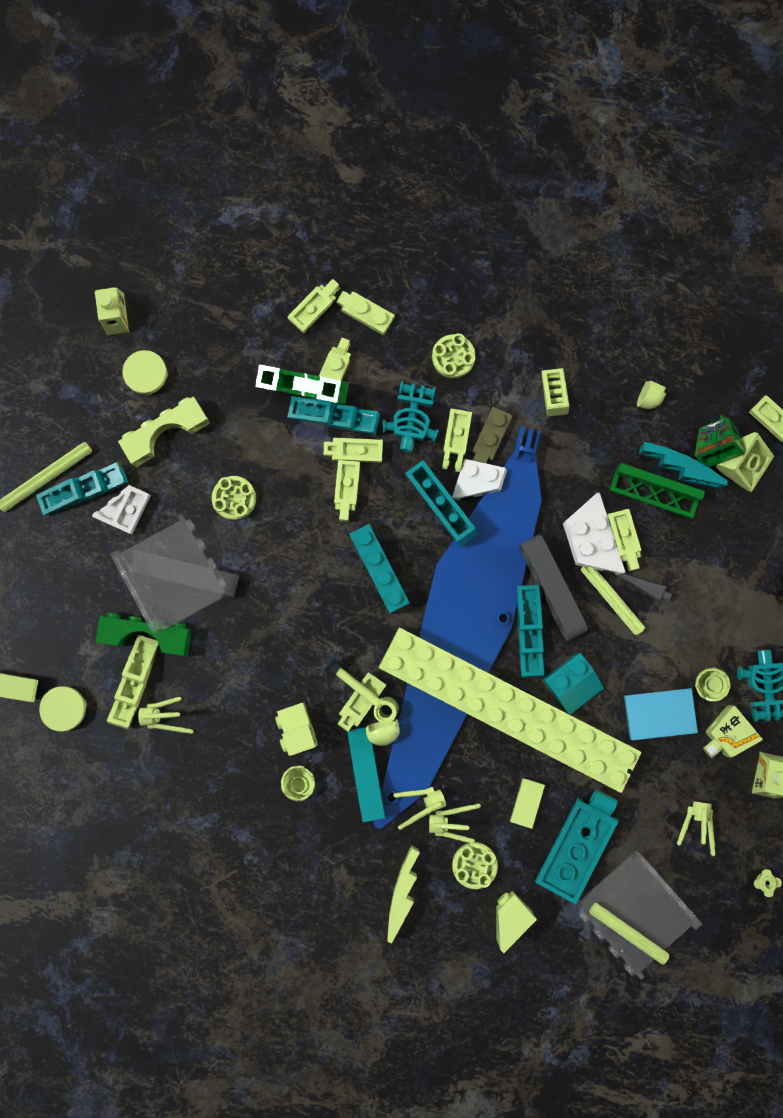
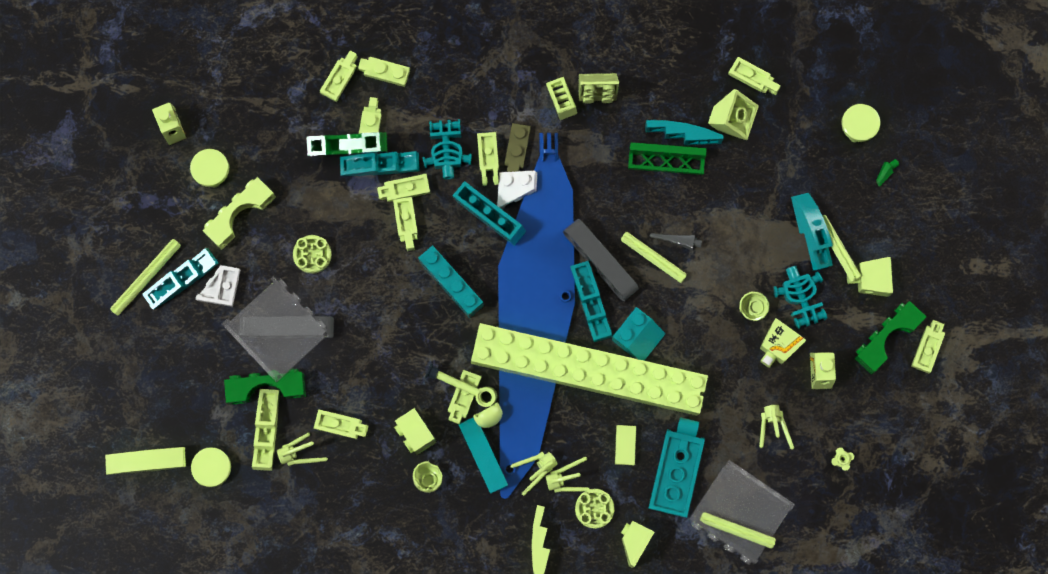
camera: 15 degrees left, 5 degrees down
(216, 698) = (340, 425): none -> yellowish green hinge
(453, 356) = (468, 89): yellowish green tile -> none
(592, 537) = (623, 210): white wing -> none
(600, 390) = (598, 87): none -> yellowish green slope
(625, 538) = (651, 204): yellowish green hinge -> none
(651, 395) = (643, 81): yellowish green piece -> none
(660, 714) = (718, 342): medium azure tile -> none
(718, 442) = (706, 105): green torso -> none

